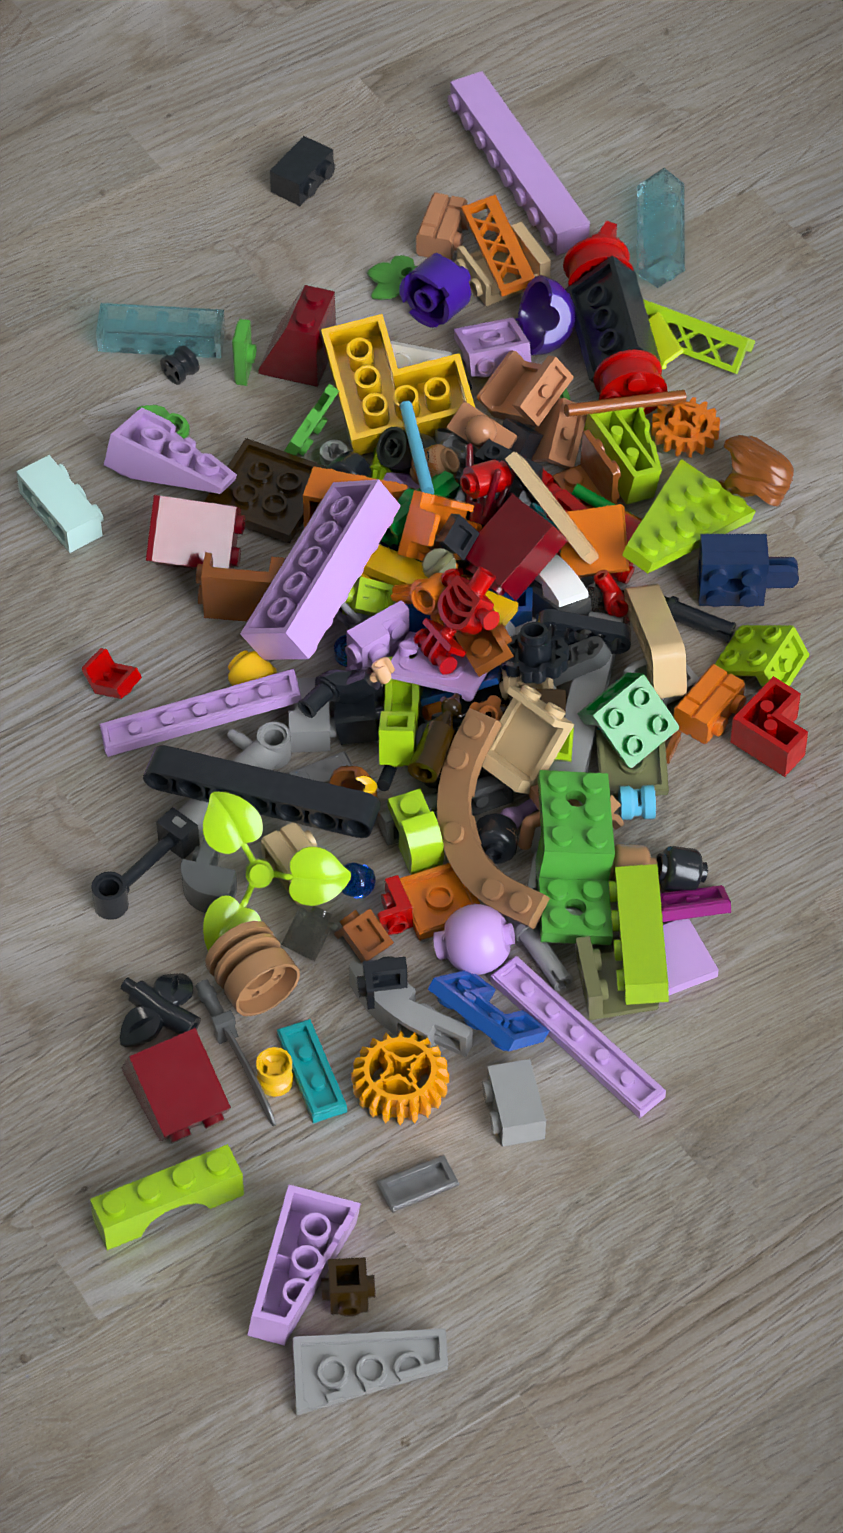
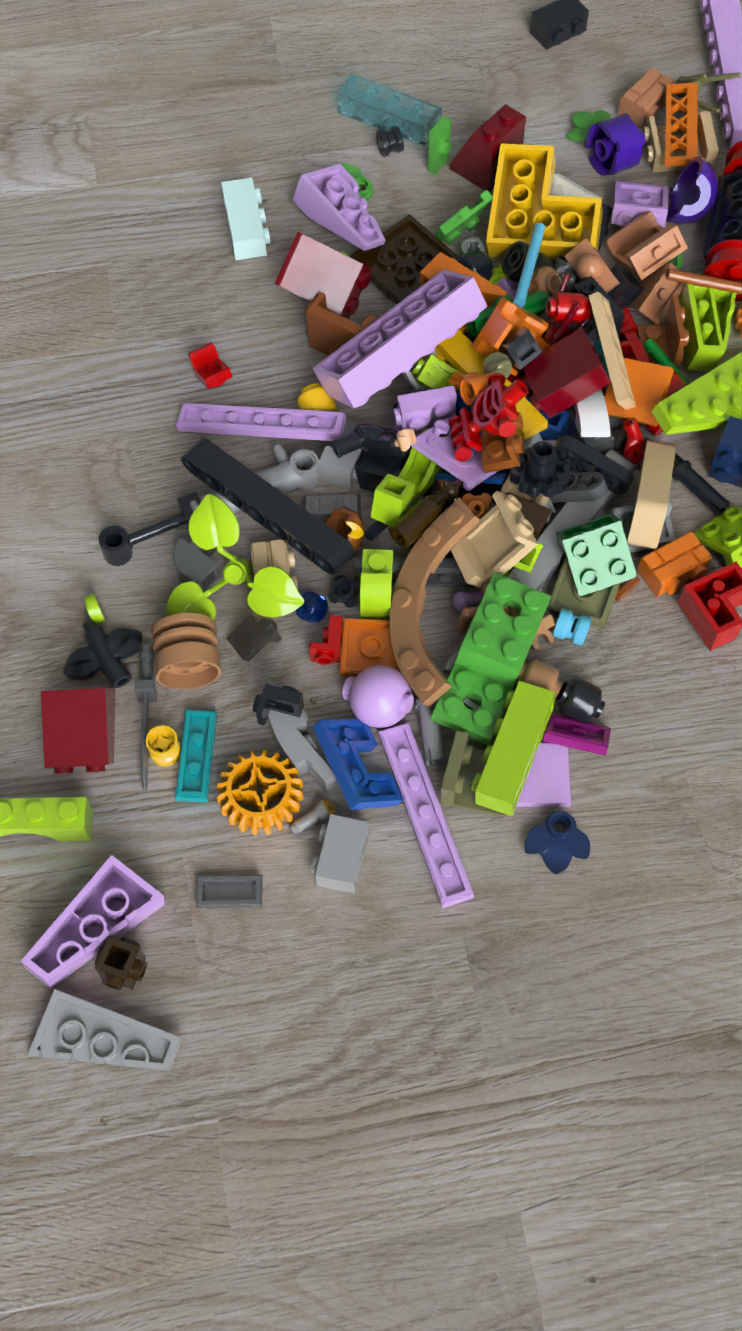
camera: 25 degrees right, 10 degrees up
(122, 965) = (94, 608): none -> lime tile
(364, 934) = (294, 656): dark orange bracket -> none
(382, 843) = (341, 583): none -> black plate
(472, 1073) = (320, 812): none -> light grey piece
(476, 195) = (703, 78): none -> olive plant
(498, 837) = (440, 614): black head -> none
(725, 1015) = (556, 846): none -> dark blue plate

